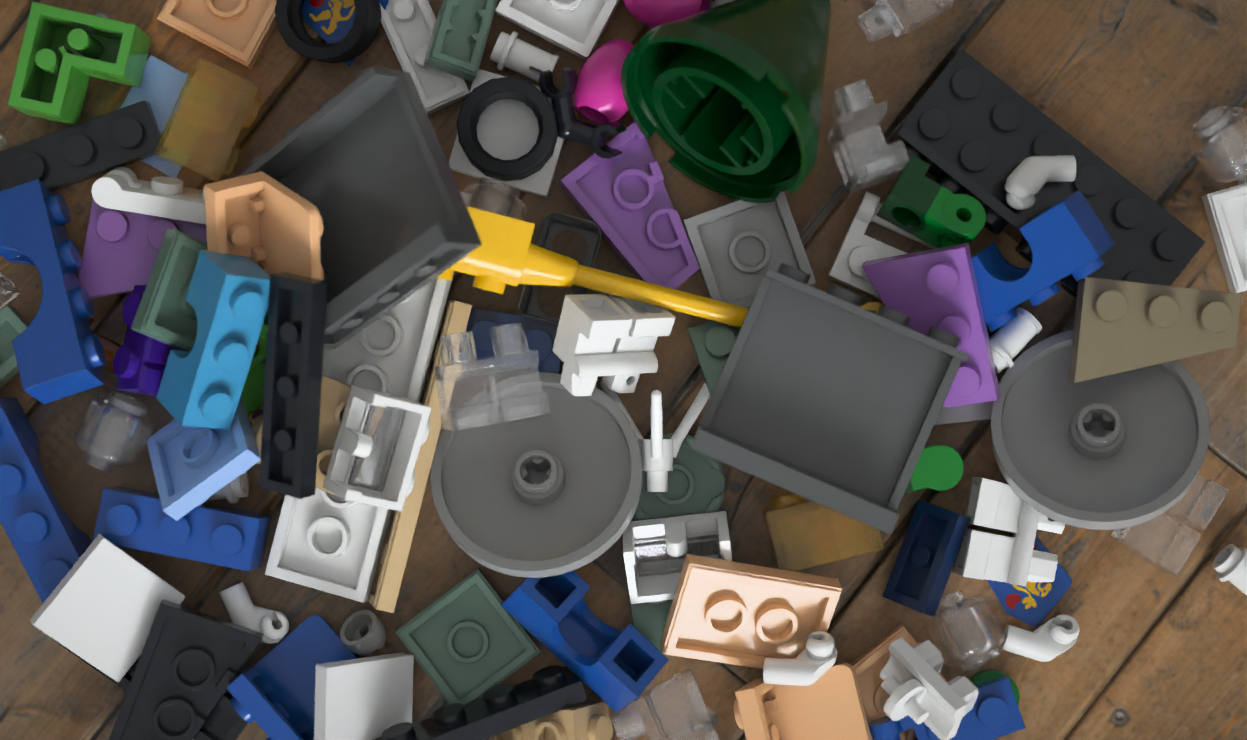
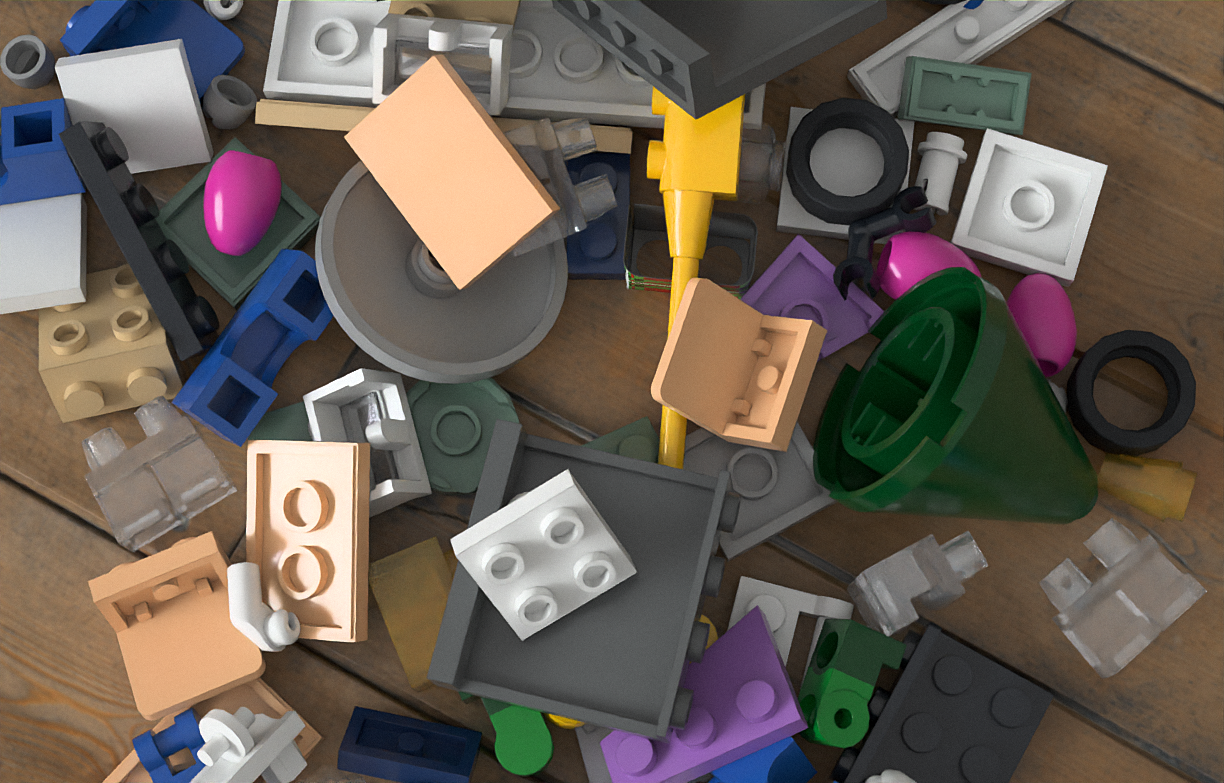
camera: 85 degrees right, 10 degrees down
(459, 633) = (240, 201): none -> dark pink animal
(475, 454) = (451, 172): none -> light nougat tile
(609, 340) = (615, 314): white hips -> none
(657, 452) = (488, 397): white plant -> none
(672, 247) = (736, 367): none -> light nougat bracket
(808, 427) = (543, 555): none -> white plate

